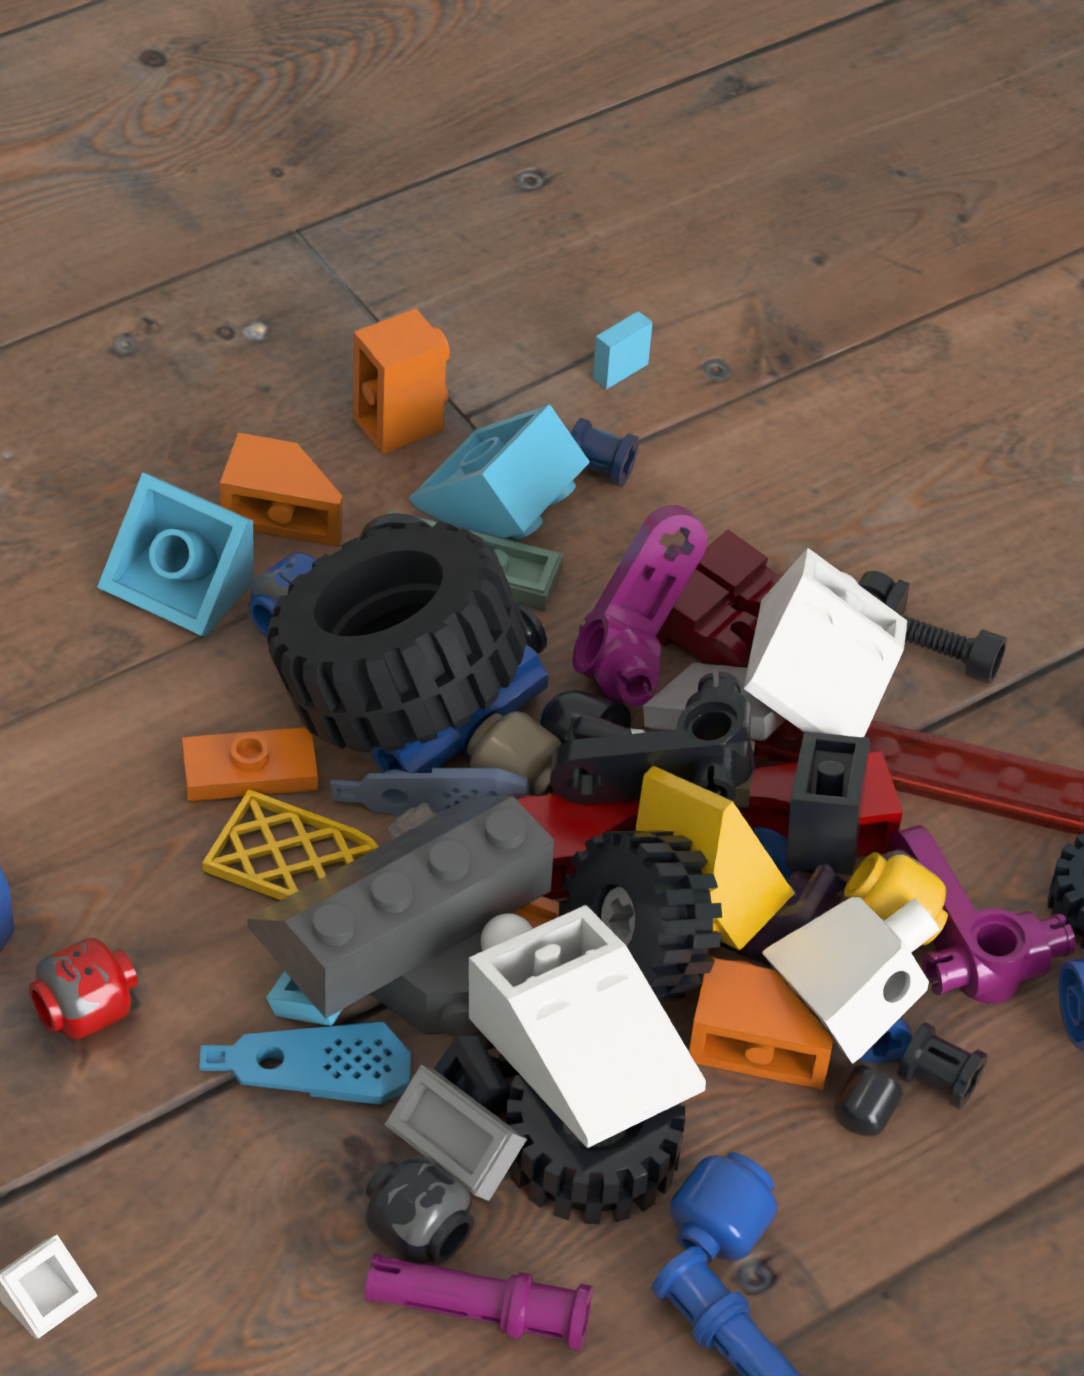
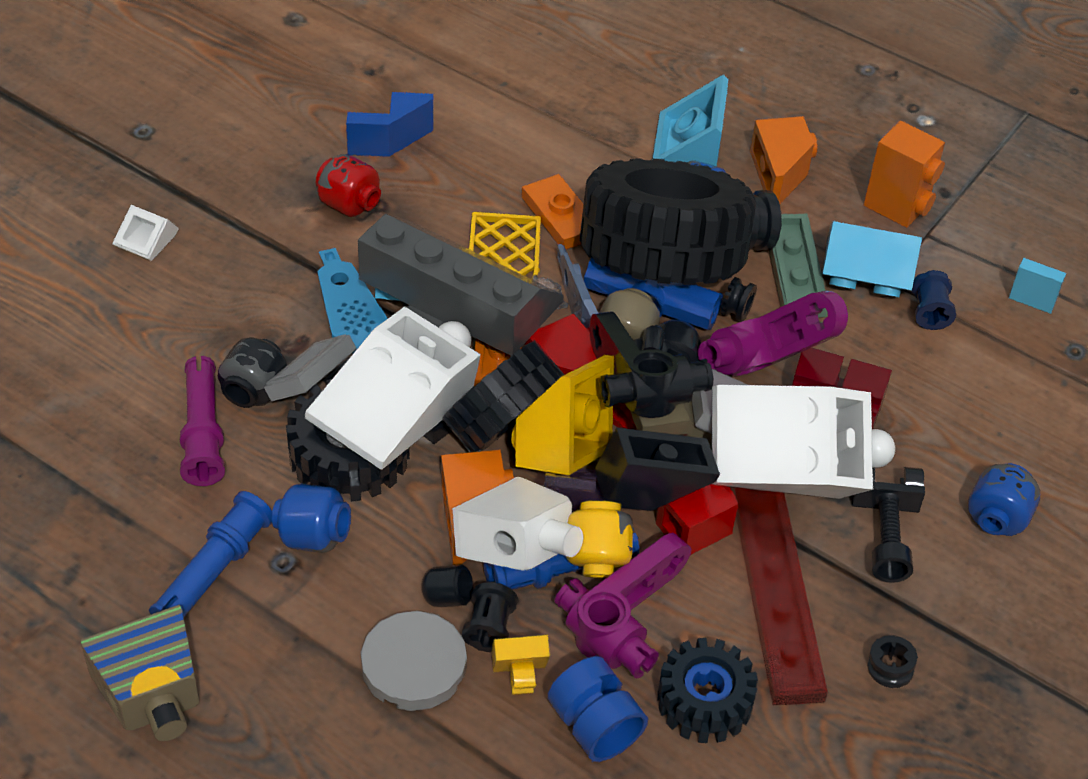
camera: 70 degrees right, 0 degrees up
(933, 522) = (1004, 499): none -> blue head
(971, 1170) = (413, 660): none -> light grey tile
(1020, 1053) = (520, 657): none -> yellow tile

